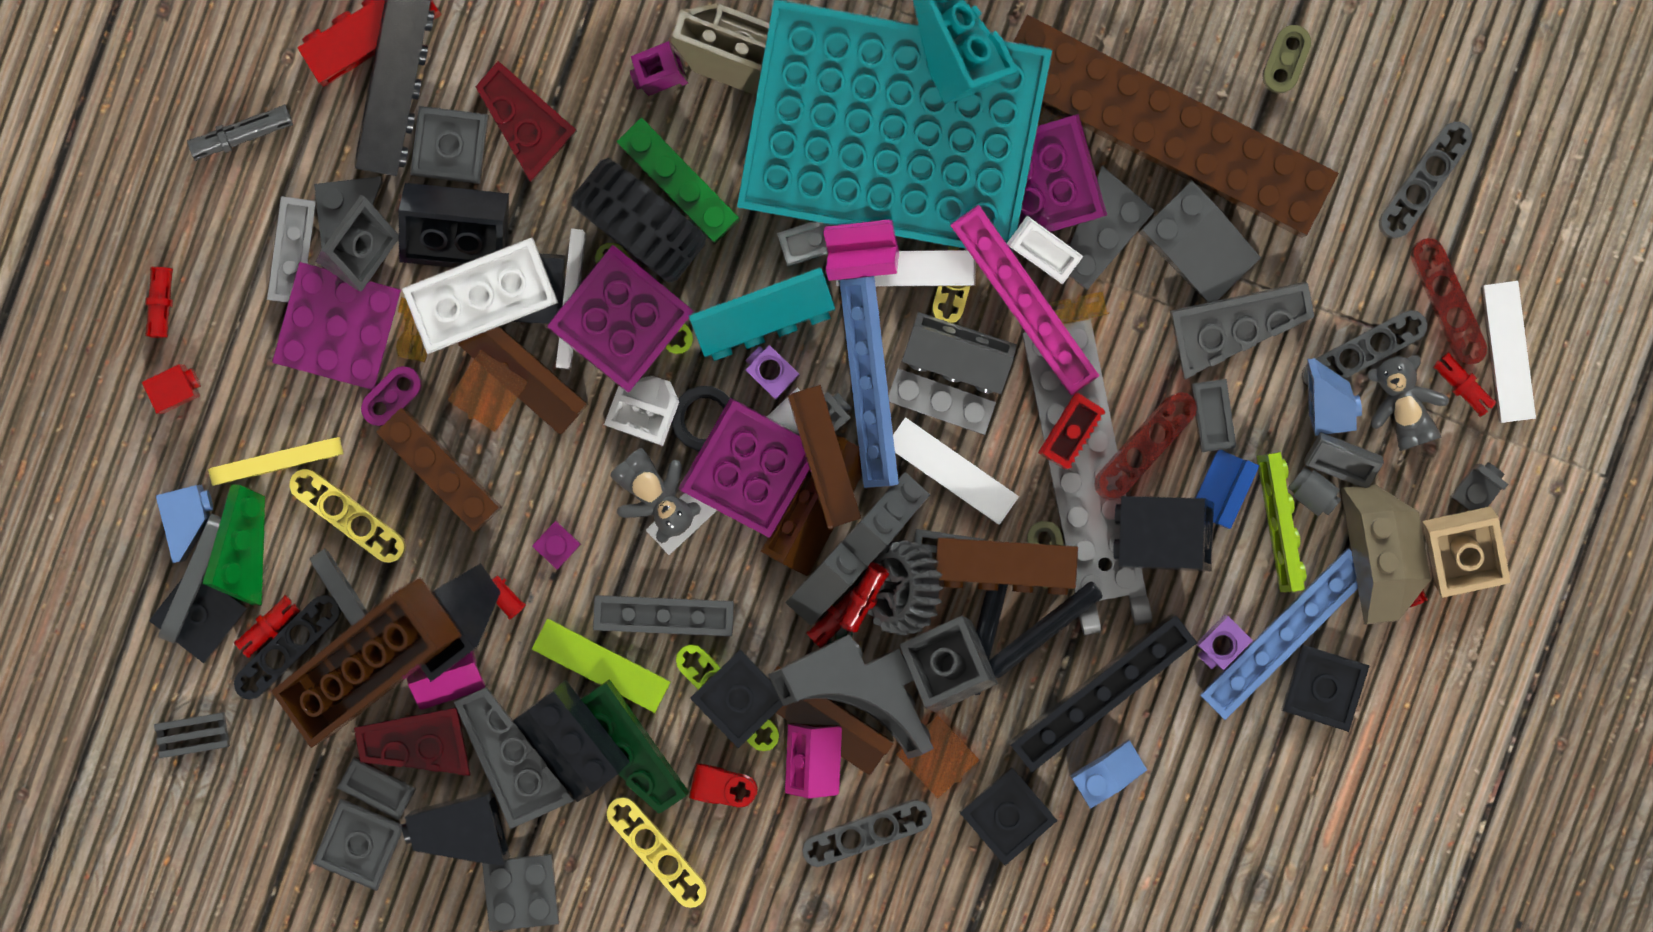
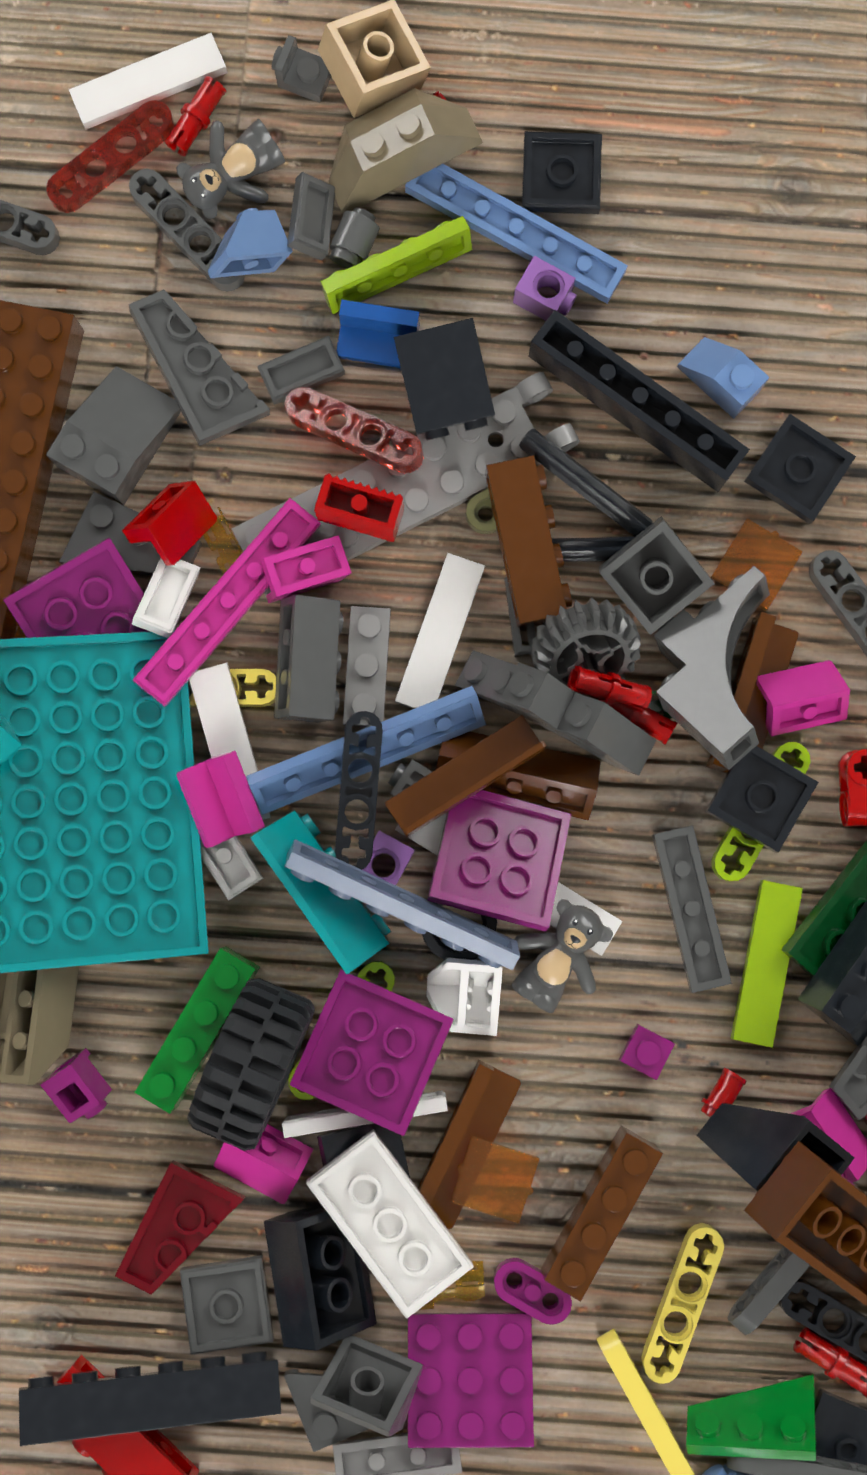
camera: 105 degrees left, 5 degrees down
(550, 207) = (268, 1168): none -> dark pink panel
(724, 385) = (416, 912): none -> sand blue plate
(834, 369) = (363, 791): none -> black beam
(1035, 372) = (305, 568): none -> dark pink panel
(1108, 271) = (173, 521): none -> red panel

